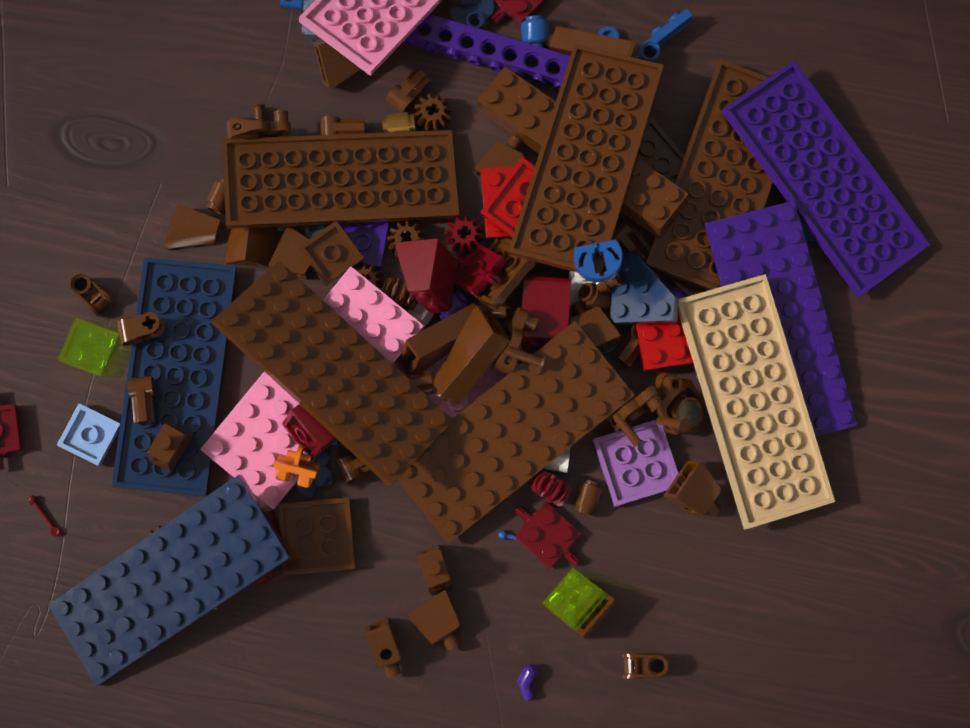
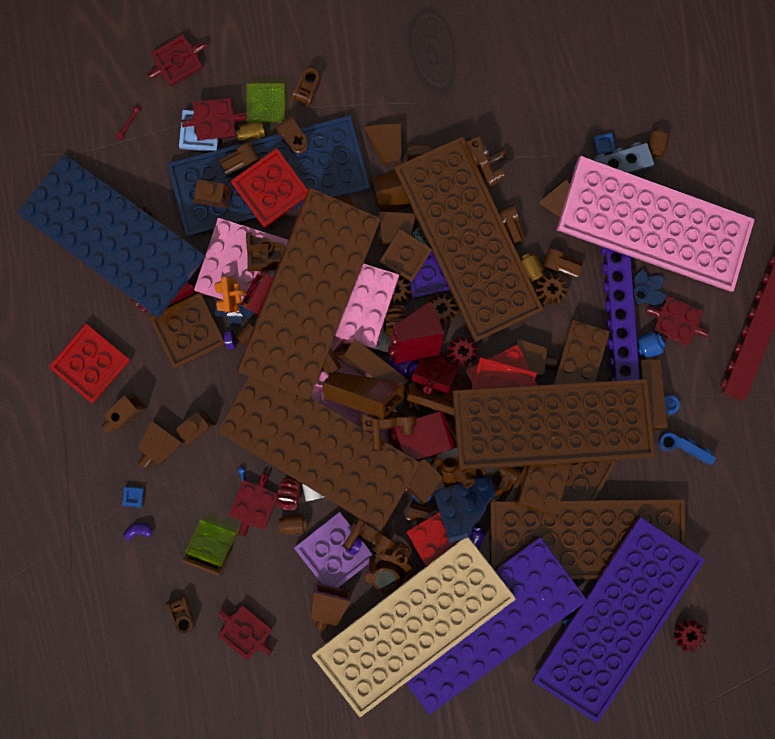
camera: 70 degrees right, 5 degrees up
(83, 412) = (214, 119): none -> dark red plate
(115, 376) = (250, 132): none -> pearl gold brick
(190, 376) = (270, 188): none -> red plate
(265, 409) = (262, 253): none -> reddish brown slope
(309, 665) = (89, 363): none -> red plate
(346, 490) = (229, 339): none -> dark purple tile
(485, 672) = (133, 496): none -> blue tile
(603, 248) = (458, 458): blue piece -> none
(641, 432) = (355, 546): none -> dark purple tile
(691, 599) = (245, 632): none -> dark red plate
(877, 114) = (687, 628): none -> dark red gear

